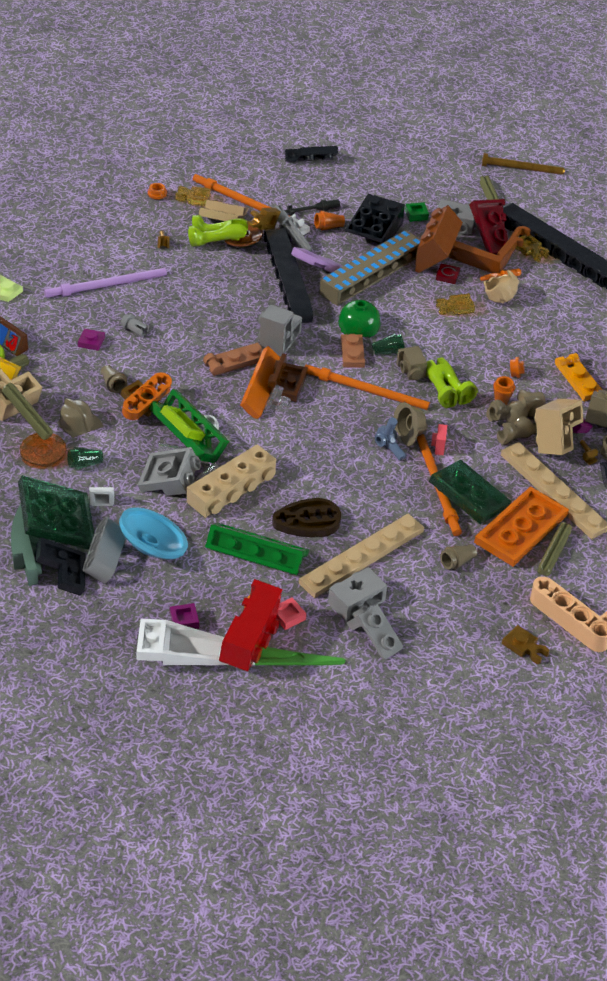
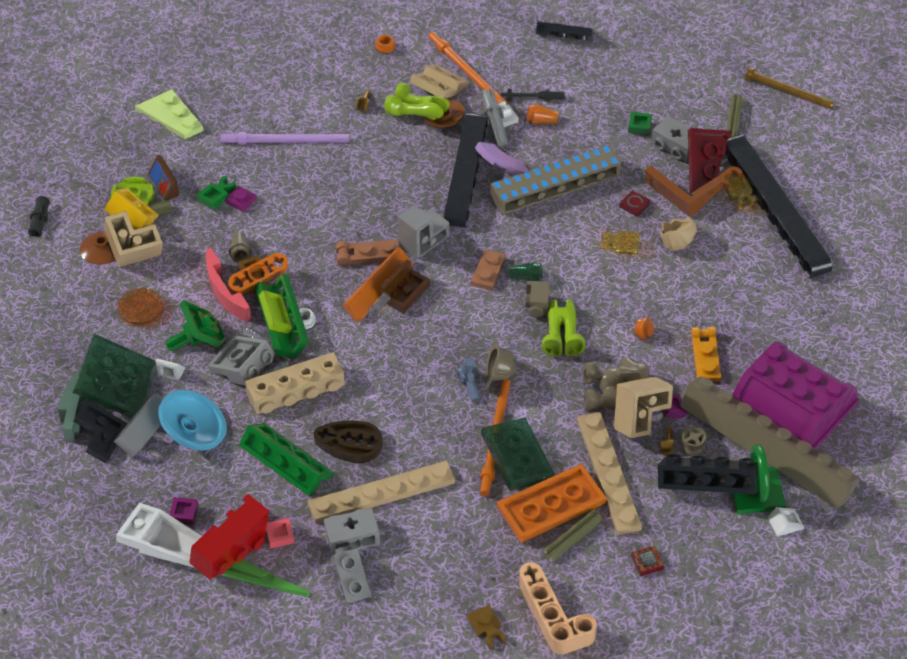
camera: 25 degrees right, 5 degrees up
(27, 411) = (136, 265): olive axle -> none
(65, 340) = (215, 195): none -> green plate
(77, 418) = (187, 281): dark tan piece -> none
(83, 457) = (170, 324): clear green cone -> none
(111, 456) = (199, 327): none -> green piece
(136, 326) = (285, 189): light grey pin -> none
(136, 427) = (233, 303): none -> coral slope
(195, 195) = (419, 57): clear yellow plate -> none
(265, 219) = (469, 102): pearl gold plate -> none
(326, 374) = (448, 290): orange bar -> none
(359, 318) = (512, 236): green cylinder -> none
(377, 218) = (587, 126): black slope -> none
(437, 238) = (634, 162): dark orange slope -> none
(439, 439) = (519, 390): coral plate -> none
(456, 556) = (468, 518): dark tan cone -> none
(503, 389) = (610, 351): orange cone -> none
(517, 272) = (696, 217): orange piece -> none

